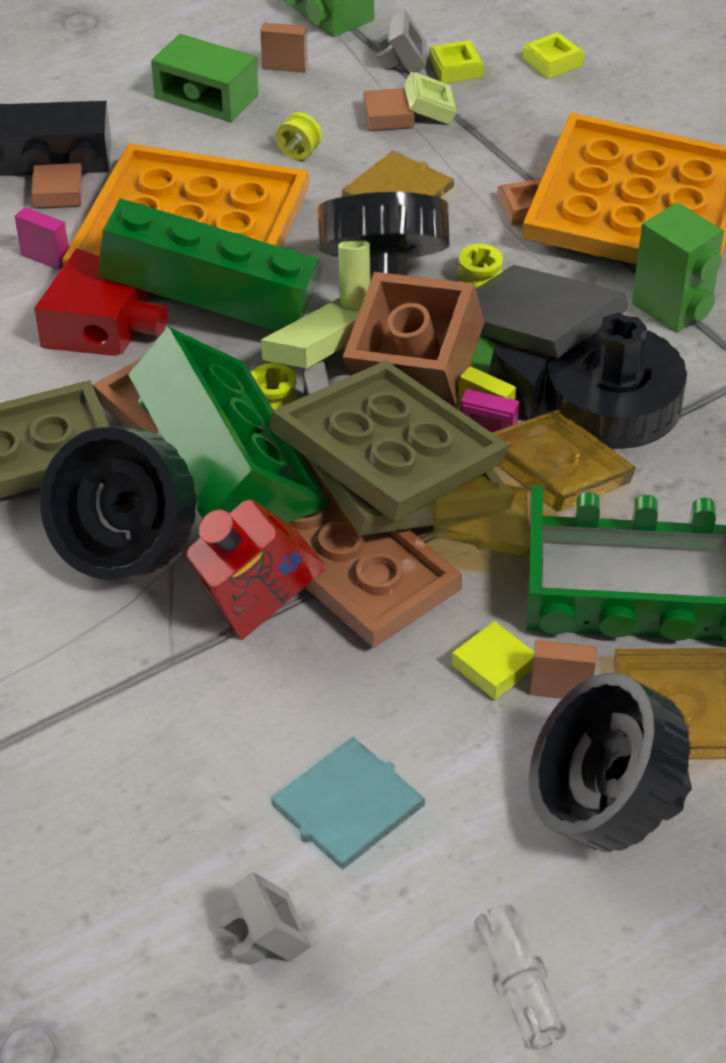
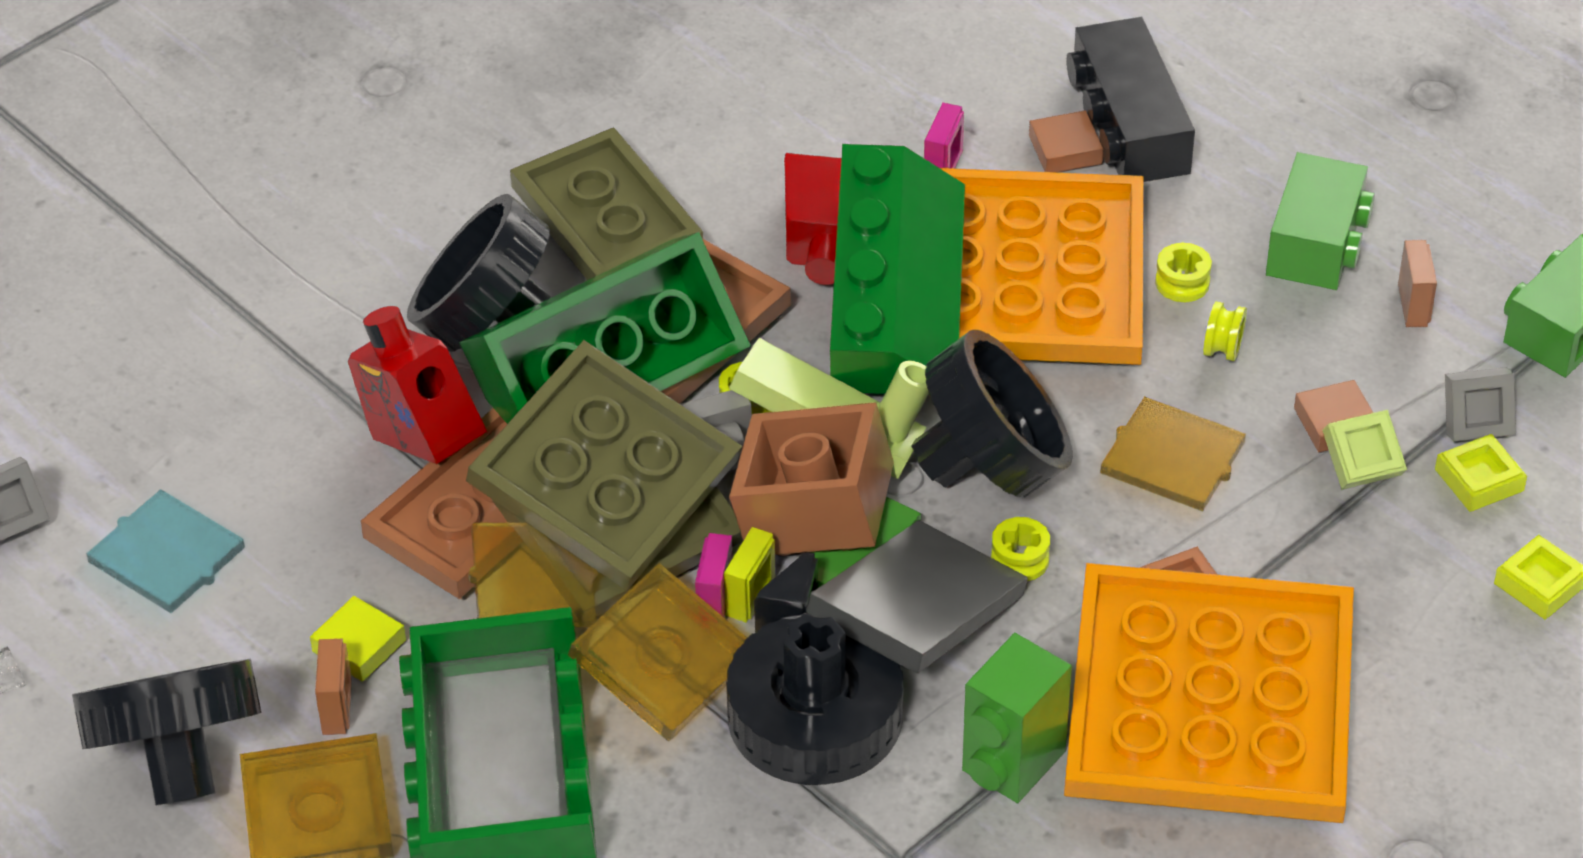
camera: 80 degrees right, 0 degrees up
(224, 144) = (1185, 258): none -> neon yellow bush

